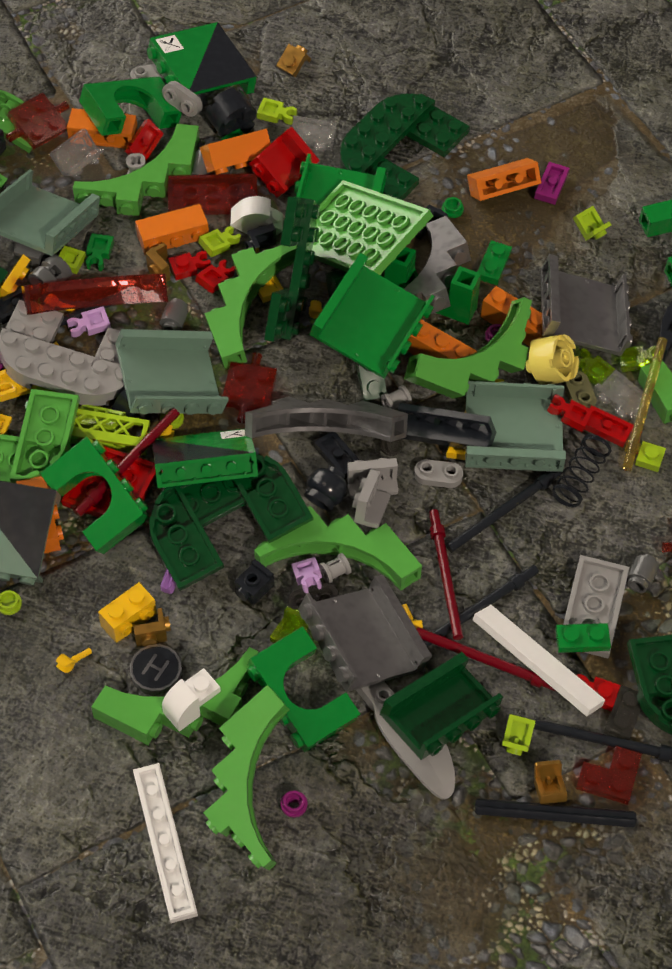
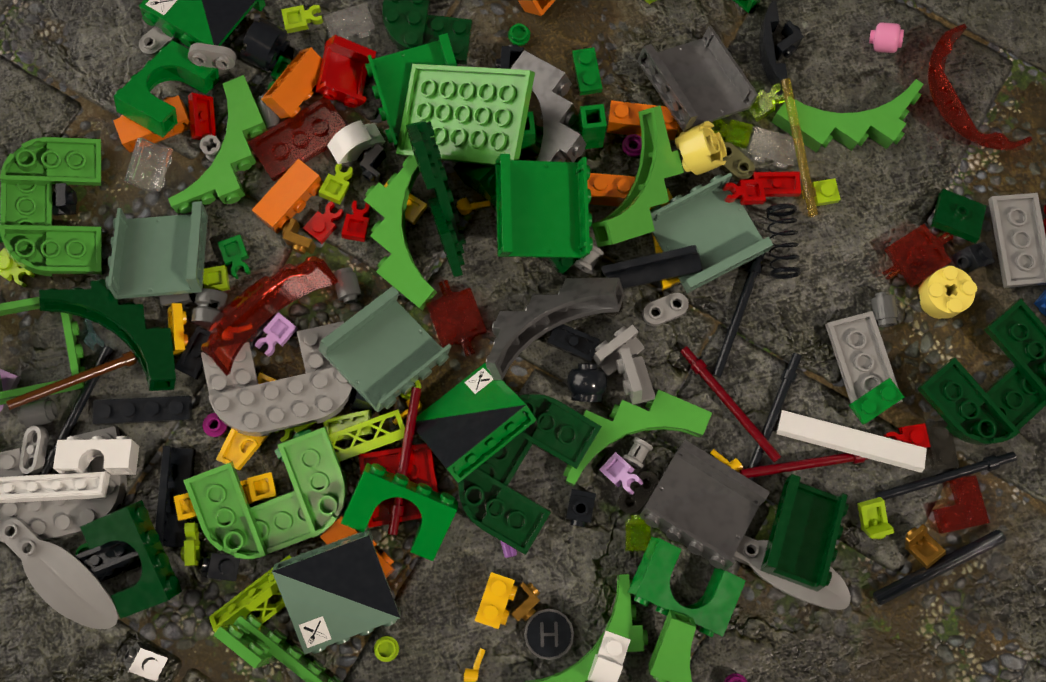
camera: 30 degrees left, 20 degrees up
(37, 121) = (89, 151): clear red plate -> none

